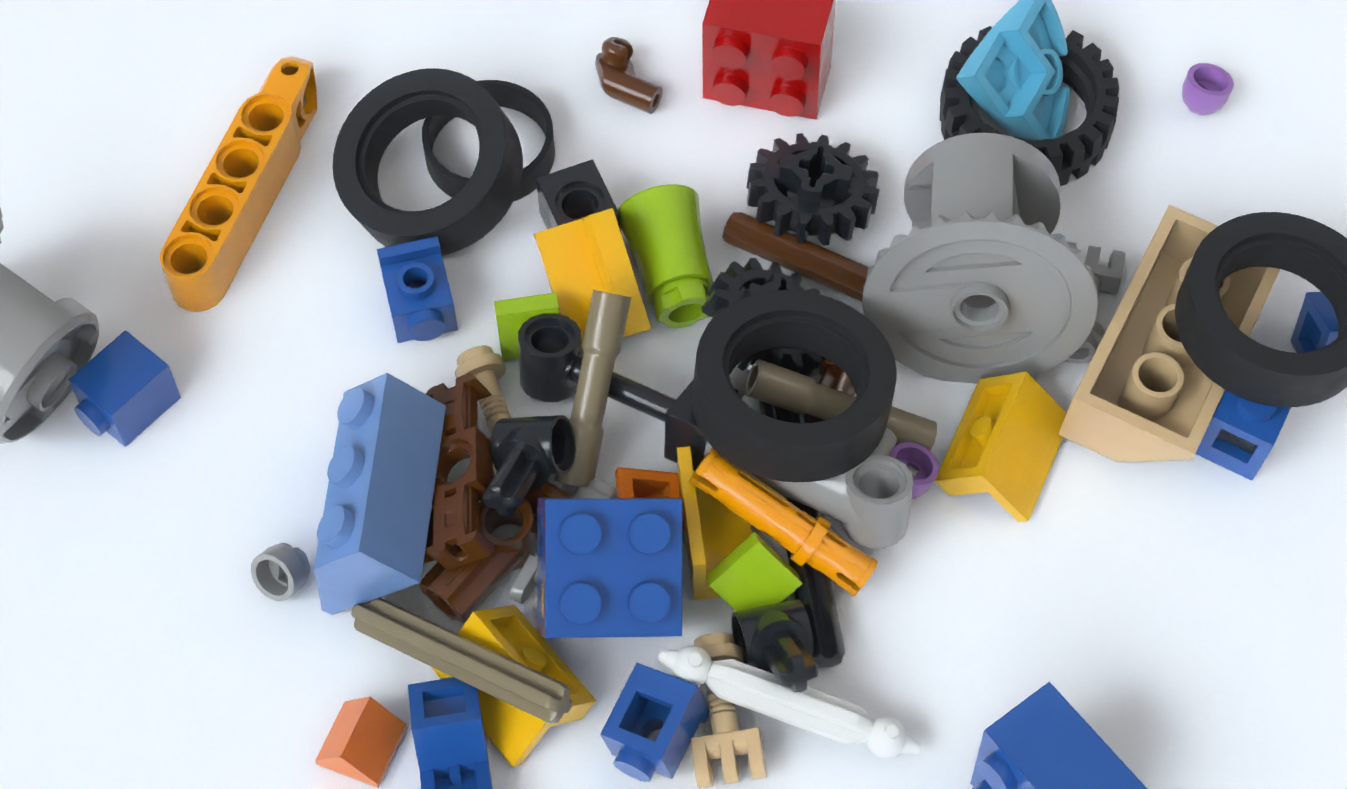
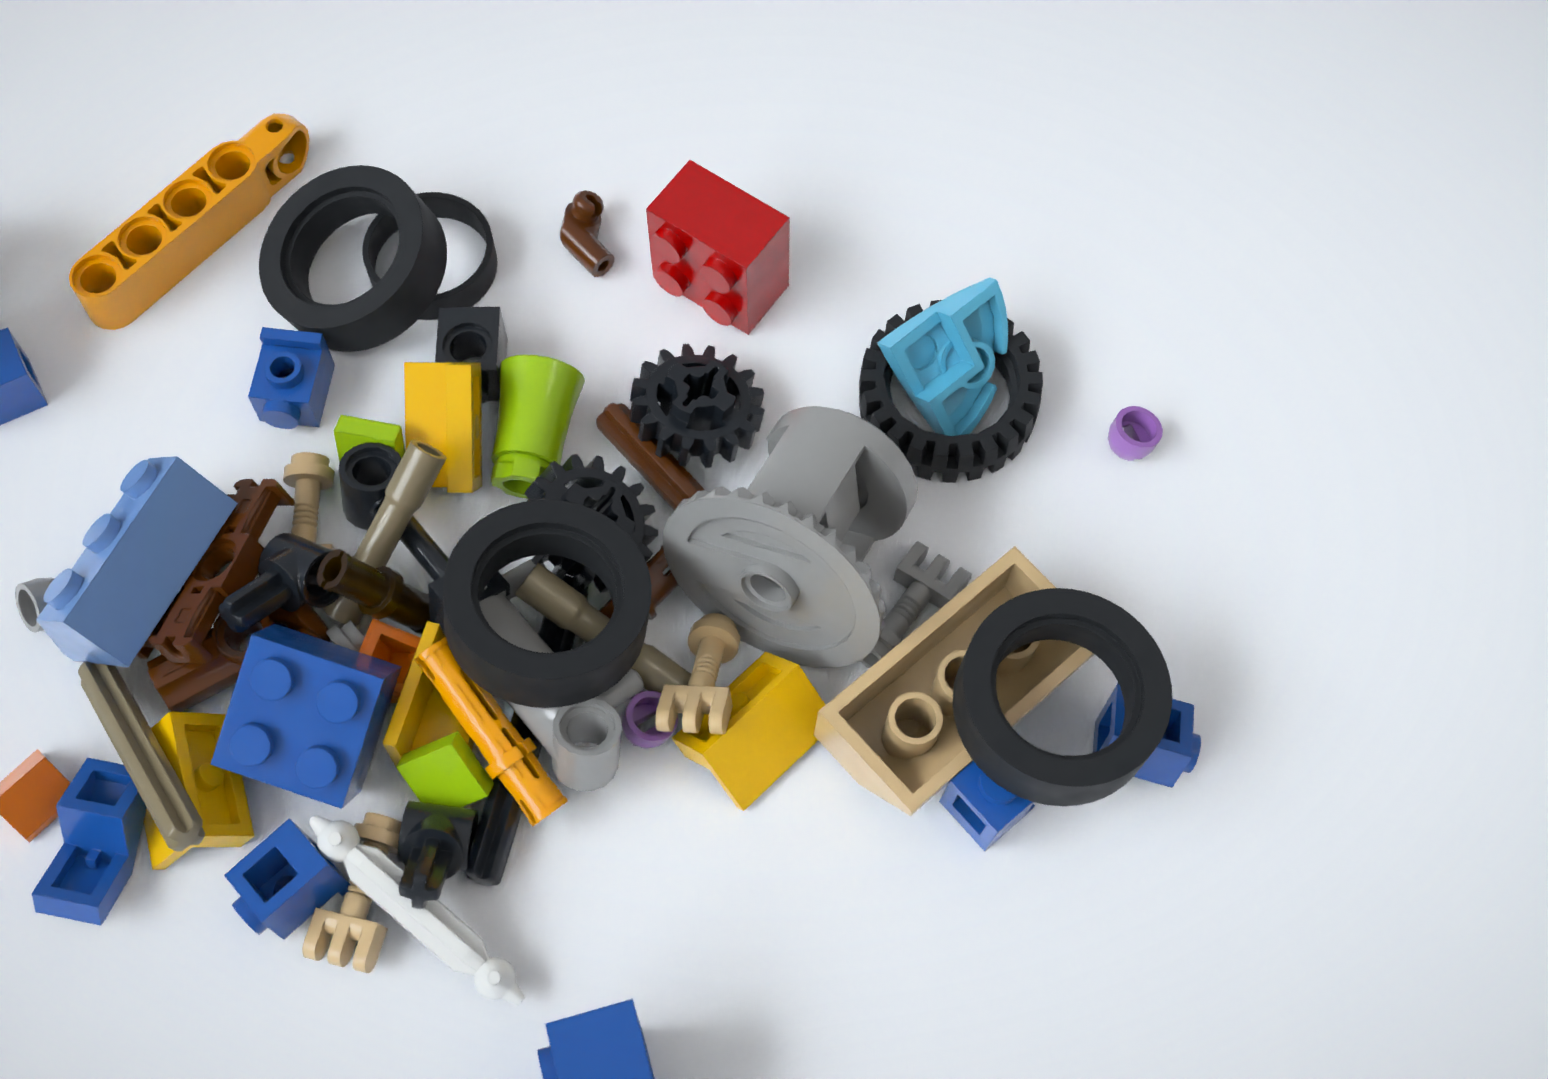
camera: 20 degrees right, 5 degrees up
(613, 439) = (377, 591): none -> dark brown pin
(931, 387) = (713, 642): none -> tan hinge

